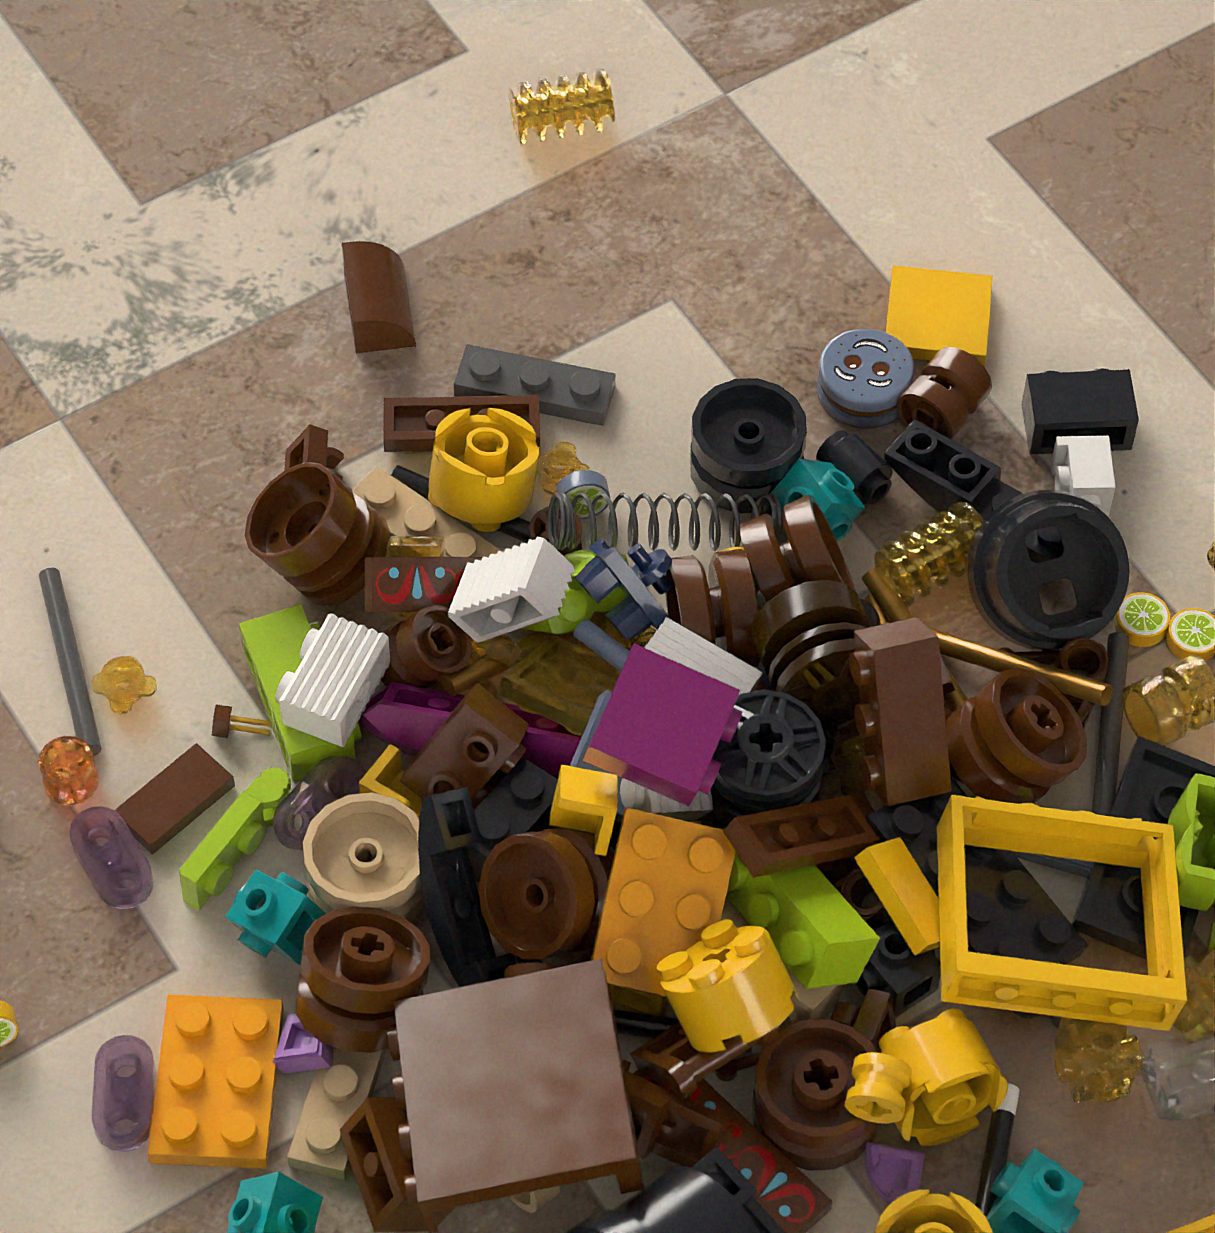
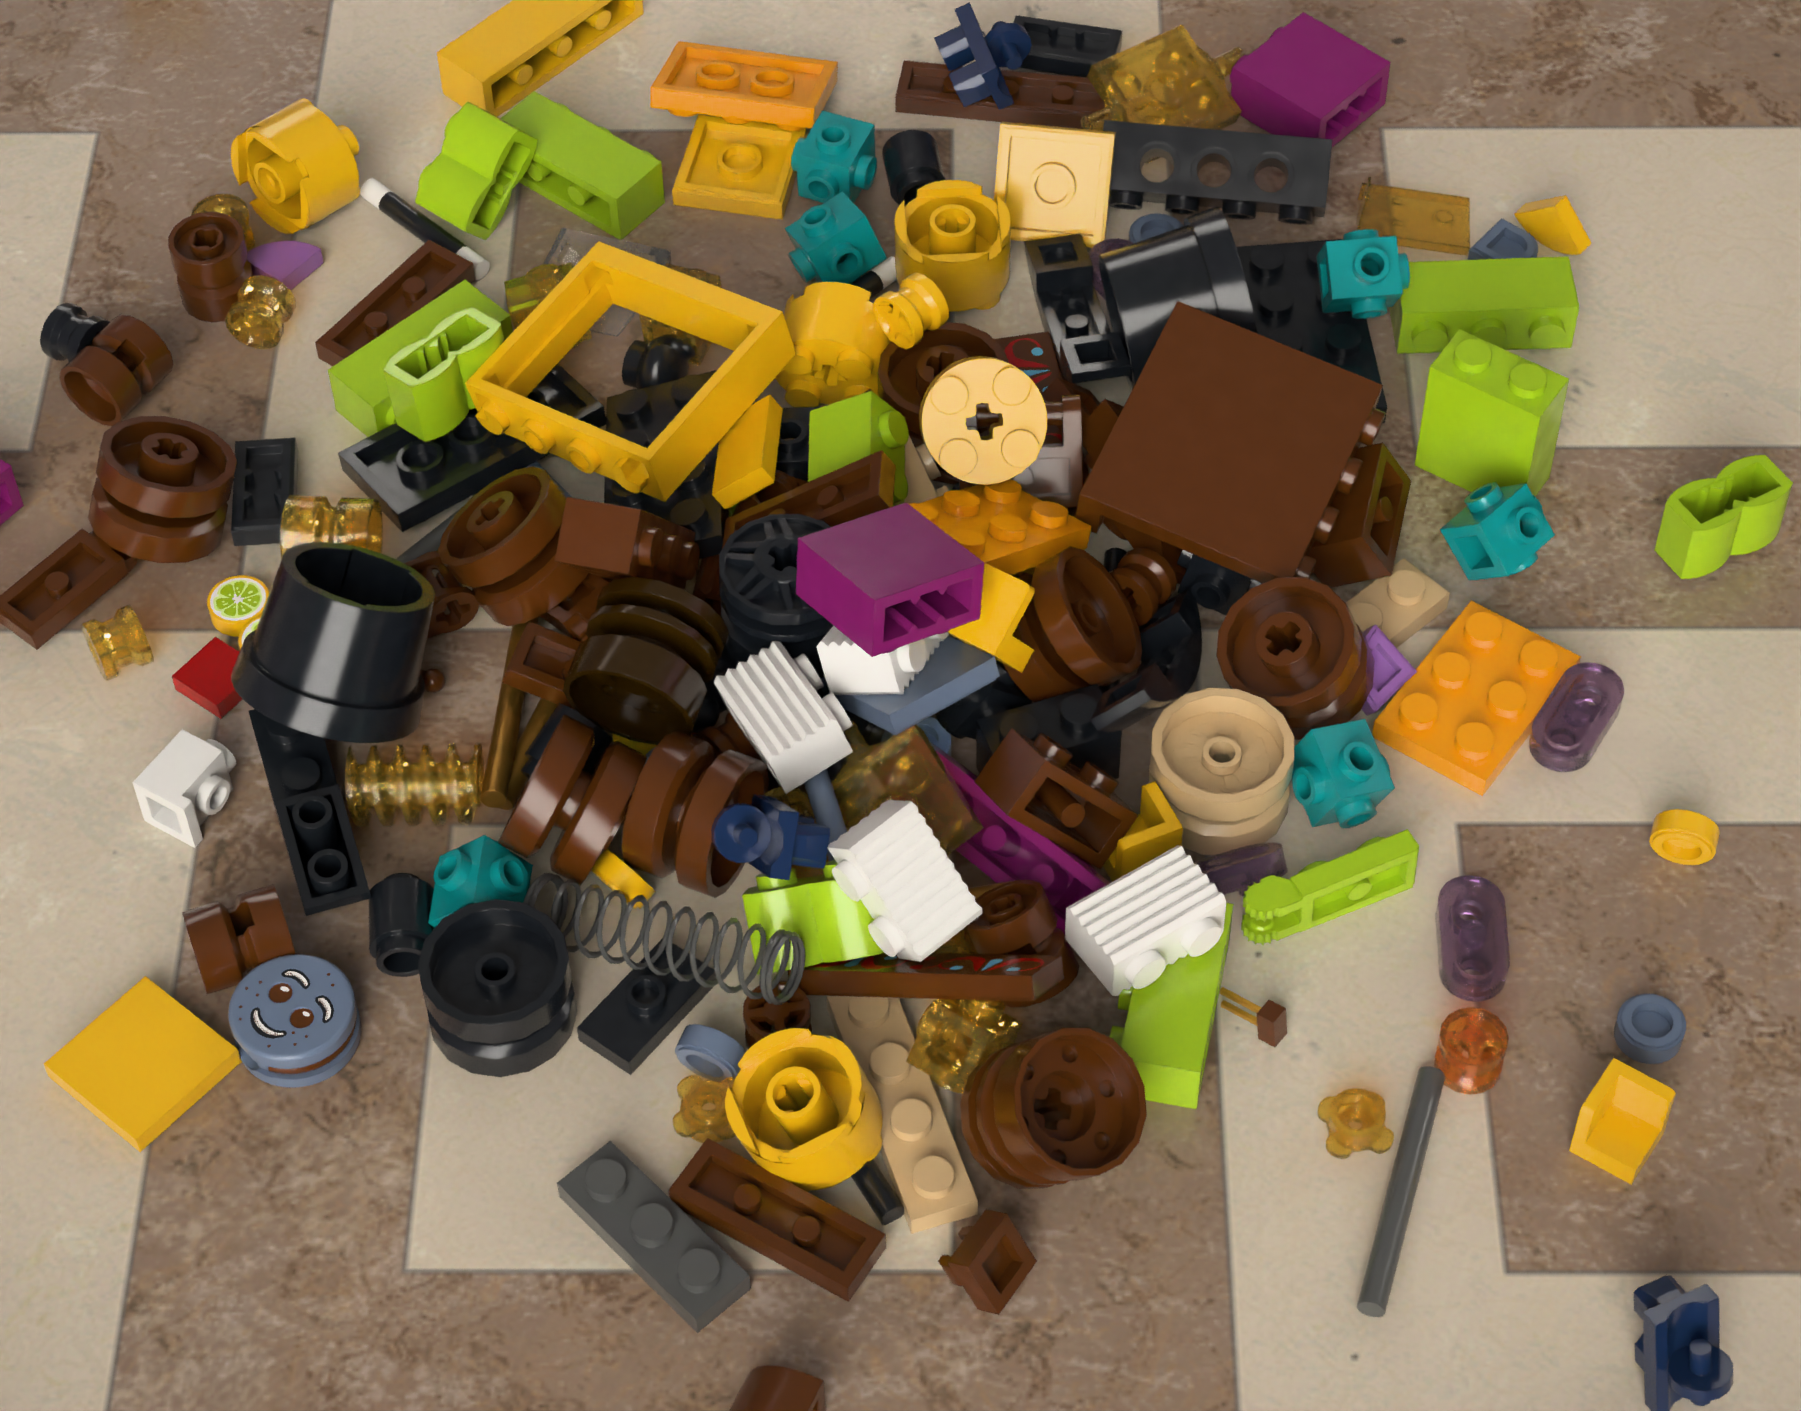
camera: 145 degrees left, 5 degrees down
(175, 798) = (1368, 975): reddish brown tile -> none
(655, 482) = (643, 1011): none -> black plate
(999, 660) = (449, 625): pearl gold bar -> none
(1079, 405) = (119, 856): black brick -> none
(1155, 573) = (208, 678): none -> red tile

